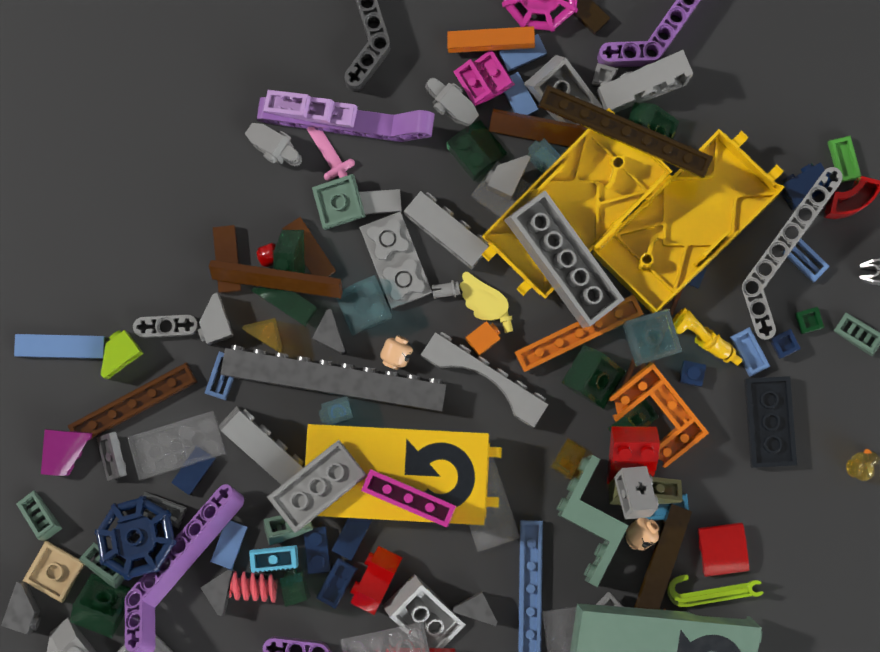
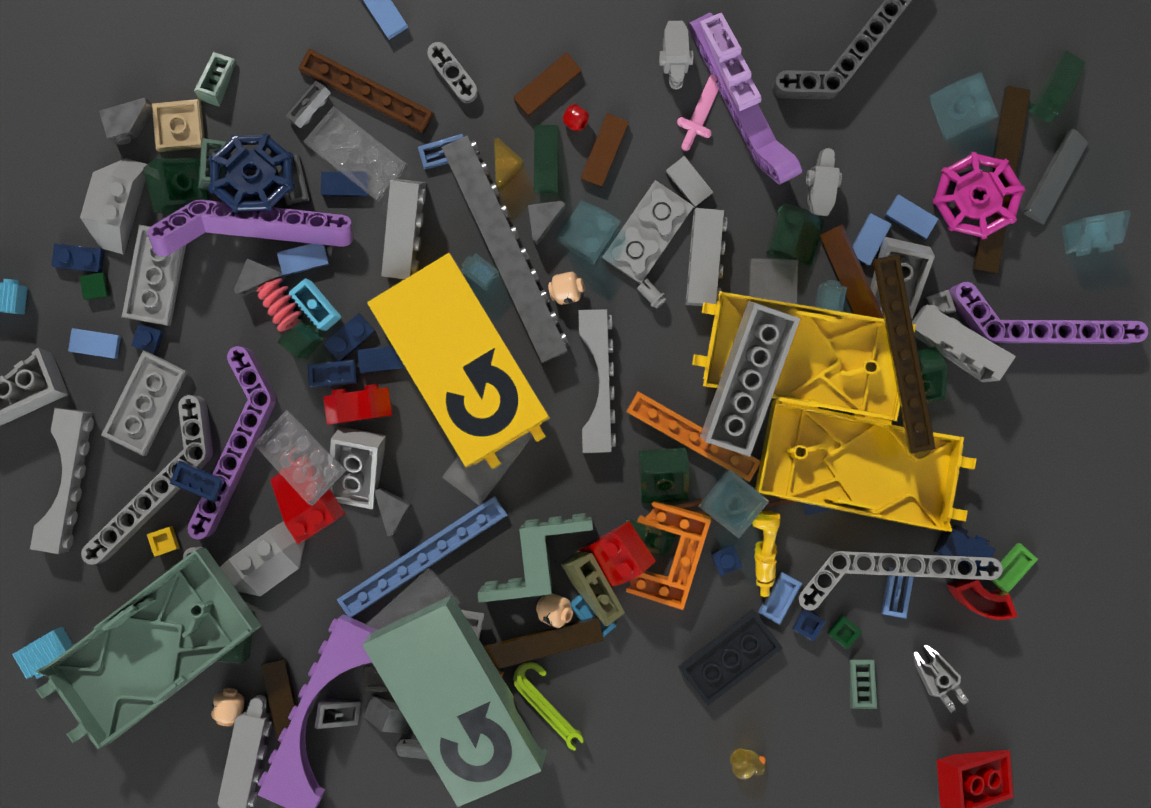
camera: 55 degrees right, 5 degrees up
(62, 450) = (283, 58): magenta slope -> none
(119, 353) = (400, 48): lime slope -> none
(214, 322) = (485, 111): light grey slope -> none
(276, 279) = (557, 137): reddish brown tile -> none
(281, 535) = (341, 299): sand green slope -> none
(290, 251) = (588, 134): clear green slope -> none
(317, 486) = (399, 297): light grey piece -> none
(338, 201) = (665, 146): sand green plate -> none
(409, 498) = (442, 384): dark pink brick -> none
(483, 78) = (864, 197): dark pink slope -> none
(483, 338) = (631, 355): orange brick -> none
(485, 301) = (665, 335): light yellow animal -> none
(490, 39) = (904, 180): orange tile -> none
(507, 177) = (789, 278): light grey slope -> none
(568, 459) = (576, 501): clear yellow slope -> none
(636, 492) = (585, 581): light grey brick -> none
(723, 549) = (590, 690): red slope -> none

